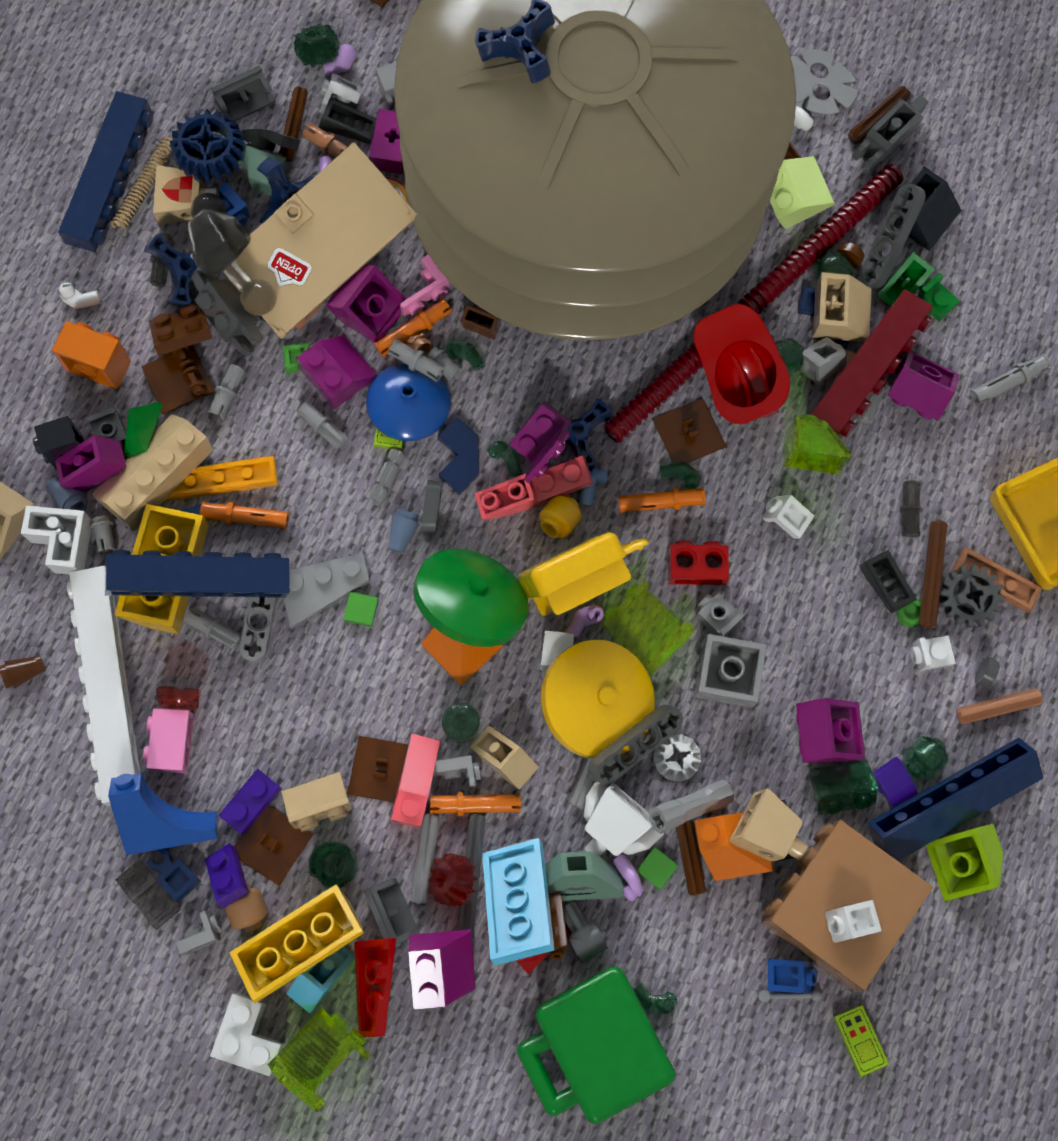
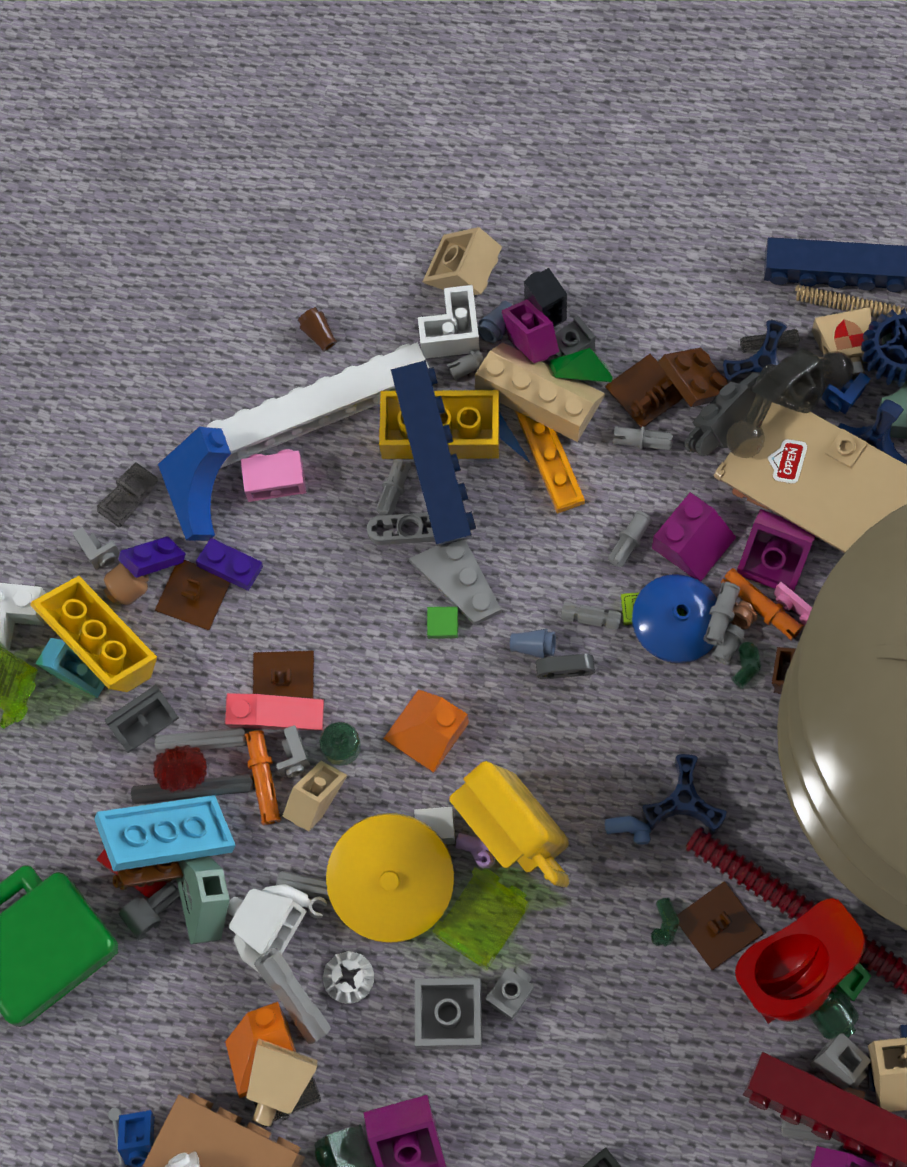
camera: 90 degrees right, 5 degrees down
(76, 299) = (706, 277): white arm -> none
(91, 354) = (645, 303): orange brick -> none
(174, 698) = (315, 471): clear red hat -> none
(175, 877) = (147, 515): dark blue plate -> none
(245, 515) = (514, 476): orange pin -> none
(290, 353) = (702, 491): bright green tile -> none
(316, 801) = (240, 628): tan slope -> none
(323, 862) = (179, 644): clear green hair -> none
(373, 984) = (68, 716): red wing -> none
(440, 967) = (93, 774): magenta slope -> none
(465, 465) = (620, 692): dark blue tile -> none
(470, 597) = (468, 717): green dish -> none
(507, 453) = (644, 732): clear green arm -> none
(519, 496) = (607, 766): coral slope -> none
(541, 438) = (663, 756): magenta bracket -> none
(560, 516) = (584, 800): yellow head -> none
(631, 876) = (205, 954): lavender arm -> none
(638, 749) = (345, 929): dark grey beam -> none
(655, 1003) = (90, 998): clear green arm -> none
(657, 868) = (228, 976): bright green tile -> none
(662, 500) = (634, 921): orange pin -> none
(691, 858) = (236, 1012): reddish brown axle -> none
(699, 572) = (557, 960): red brick -> none
(788, 514) = (644, 1053): white bracket -> none
(815, 447) = (728, 1061): clear neon green slope -> none

